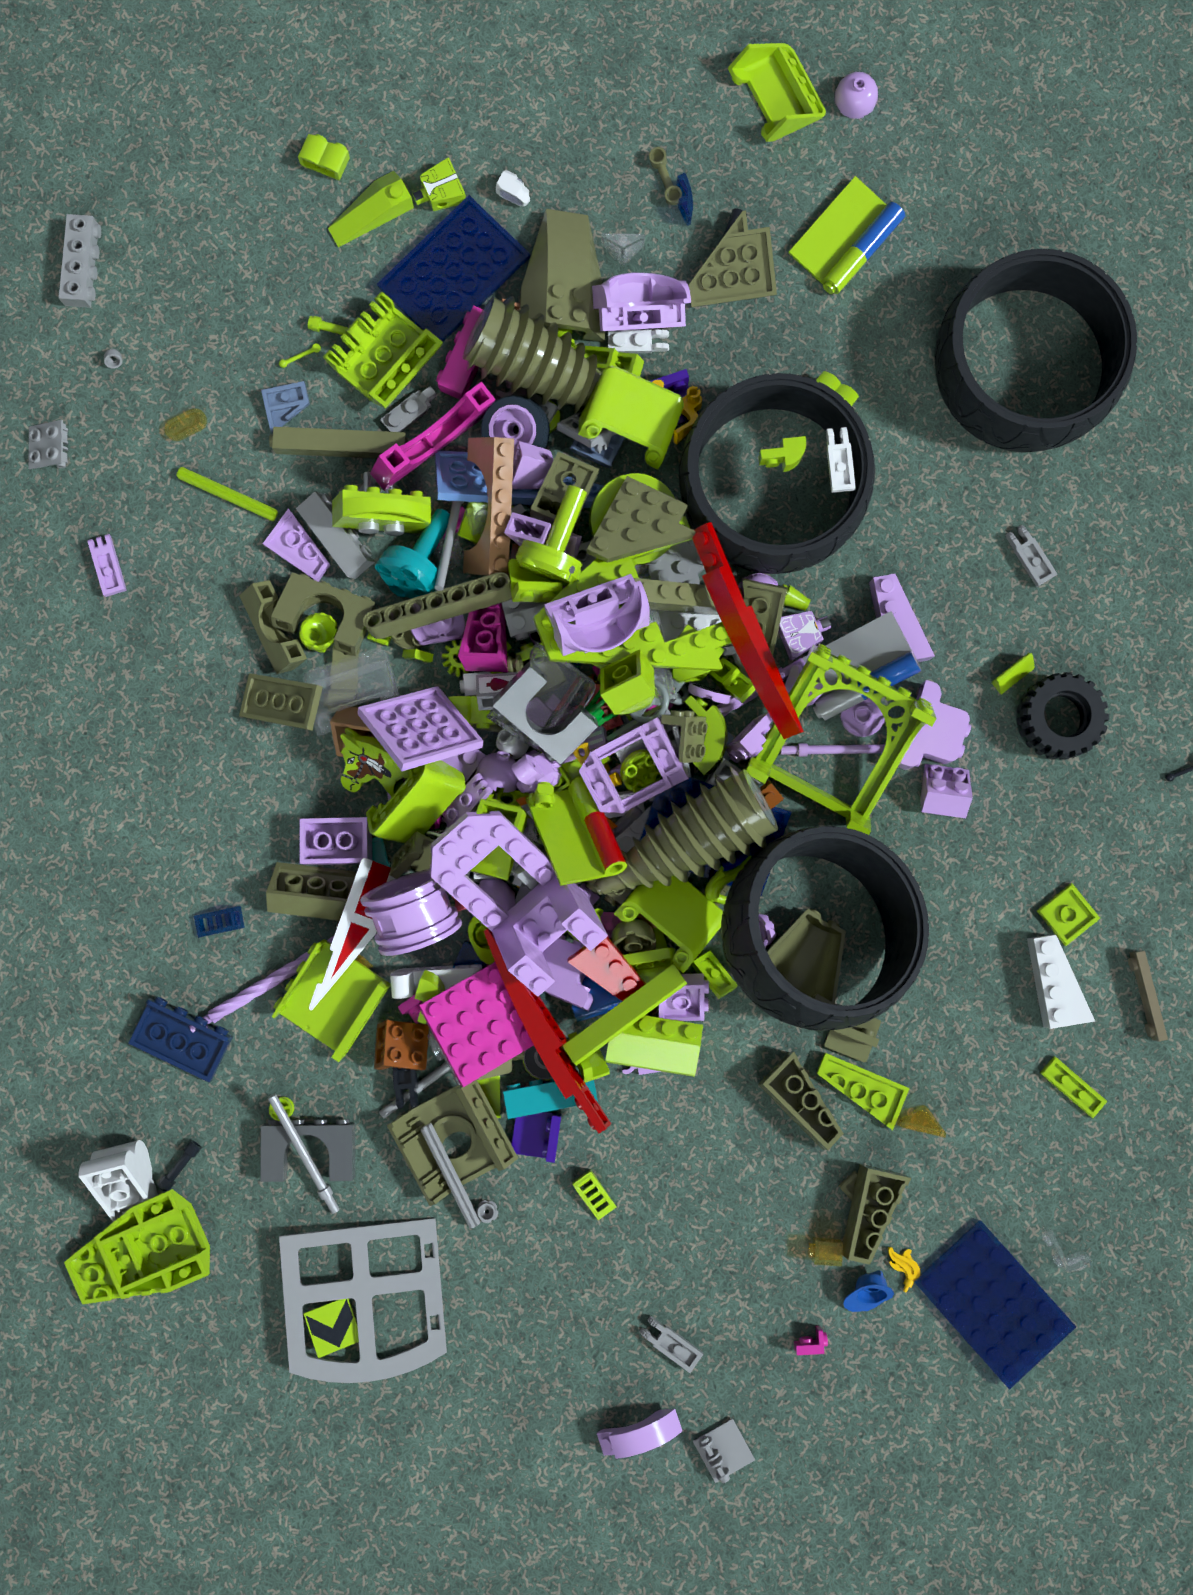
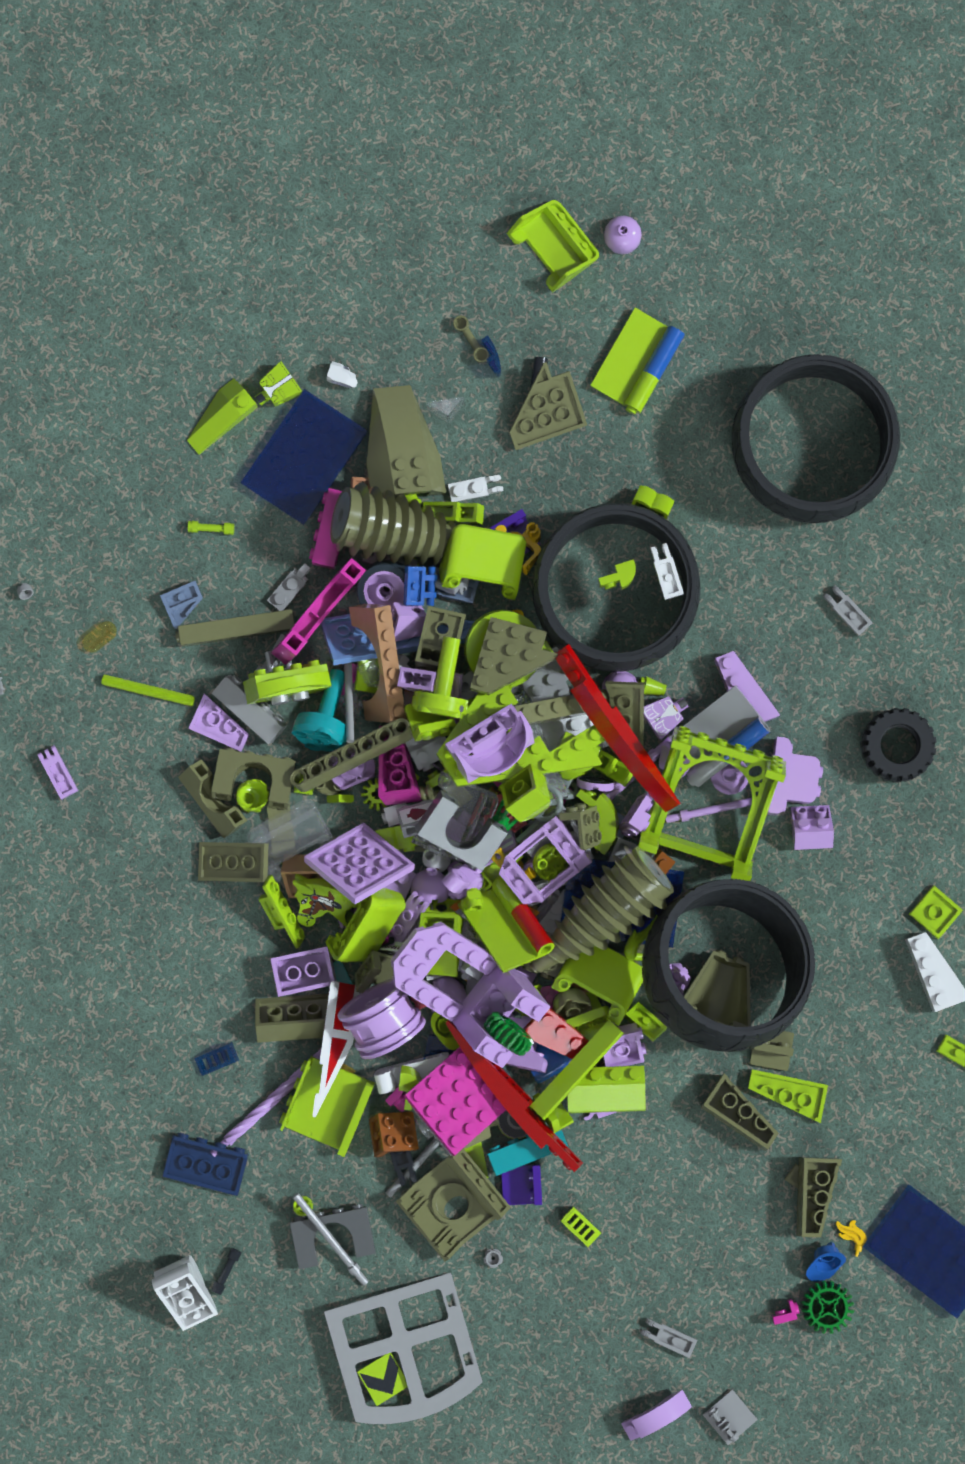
camera: 10 degrees left, 0 degrees up
(143, 1252) = (212, 1347): lime wedge -> none
(315, 348) = (198, 547): lime hinge -> none
(322, 769) = (279, 911): none -> lime bracket
(324, 156) = (171, 378): lime brick -> none
(383, 353) = (259, 543): lime slope -> none
(450, 1175) = (456, 1233): light grey axle -> none
(548, 426) = (415, 585): none -> blue plate
(553, 957) = (508, 1033): none -> green gear
(641, 302) = (466, 459): lavender piece -> none
(826, 1251) = (783, 1235): clear yellow brick -> none
(854, 1350) = (834, 1300): none -> green gear
(922, 1121) = (844, 1110): clear yellow slope -> none
(1014, 673) = (852, 715): lime slope -> none

